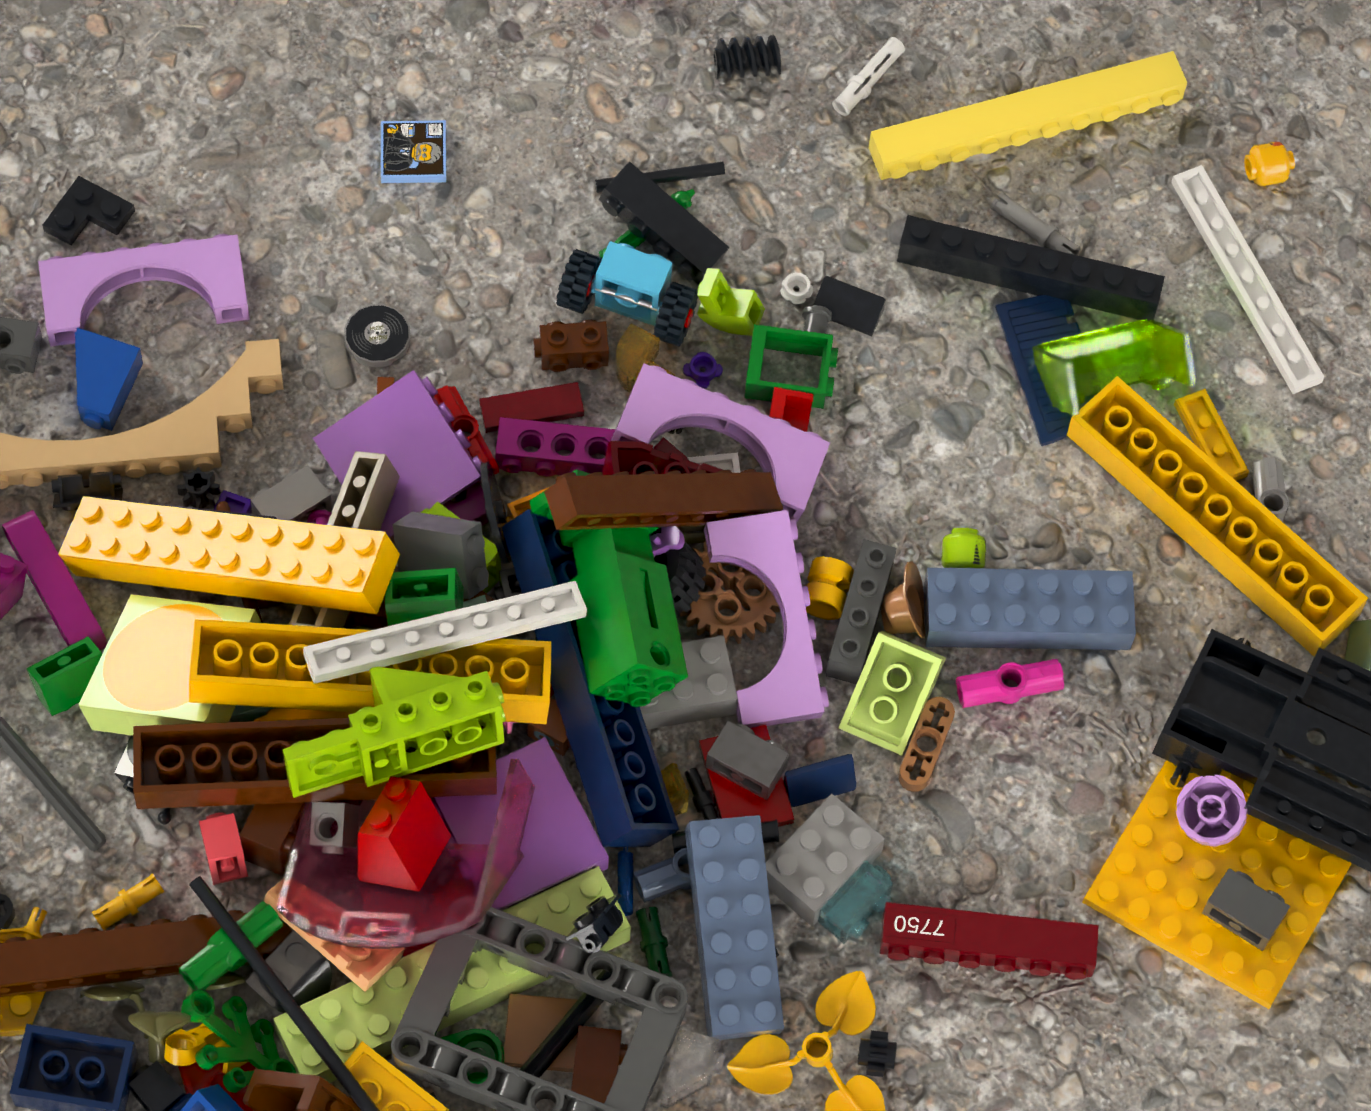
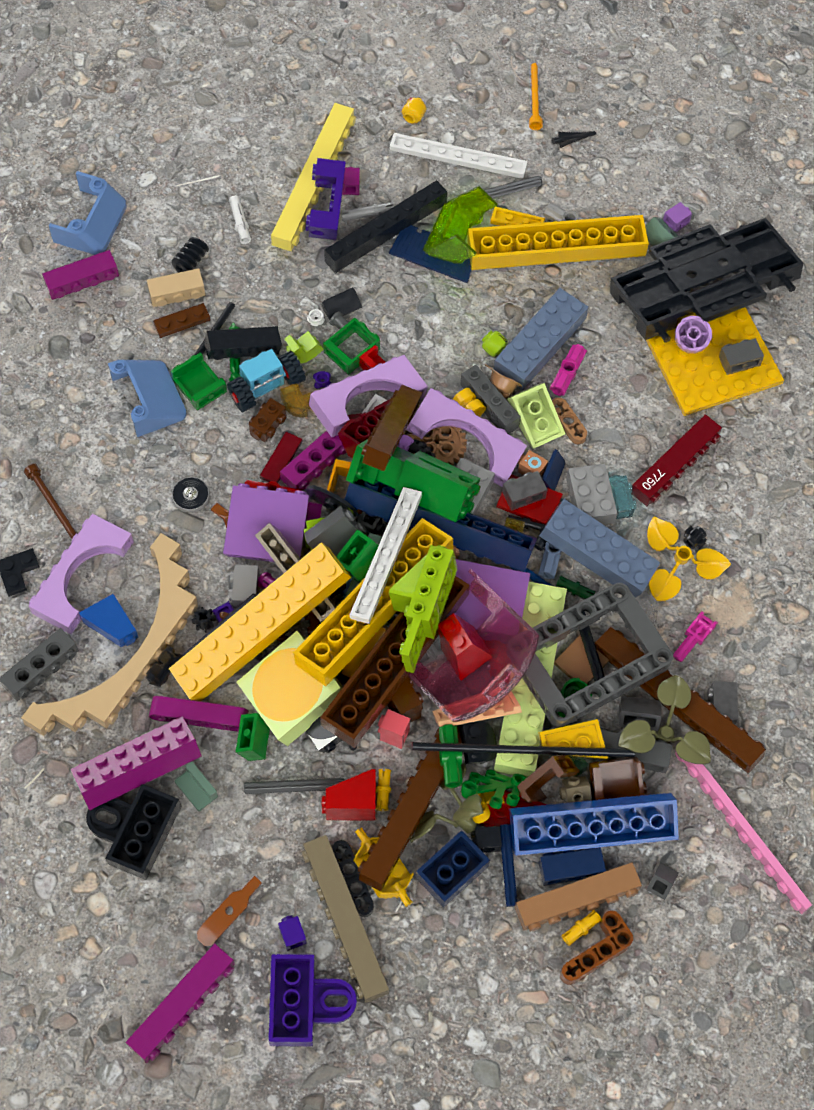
camera: 50 degrees left, 0 degrees up
(77, 867) = (351, 798): none -> red slope
(245, 121) = (33, 472): none -> reddish brown piece
(323, 816) = (425, 664): light grey brick -> none
(413, 151) = (110, 417): tile -> none
(490, 172) = (156, 392): none -> medium blue windscreen
(559, 214) = (198, 381): none -> green panel
(597, 924) = (561, 597): black hinge -> none
(640, 124) = (181, 320): none -> reddish brown plate
(682, 78) = (176, 287): none -> tan brick
(803, 742) = (531, 463): none -> nougat brick
(1034, 143) = (330, 175): none -> dark purple plate
(1065, 168) = (351, 181): none -> magenta brick
(1252, 384) = (514, 187): none -> axle

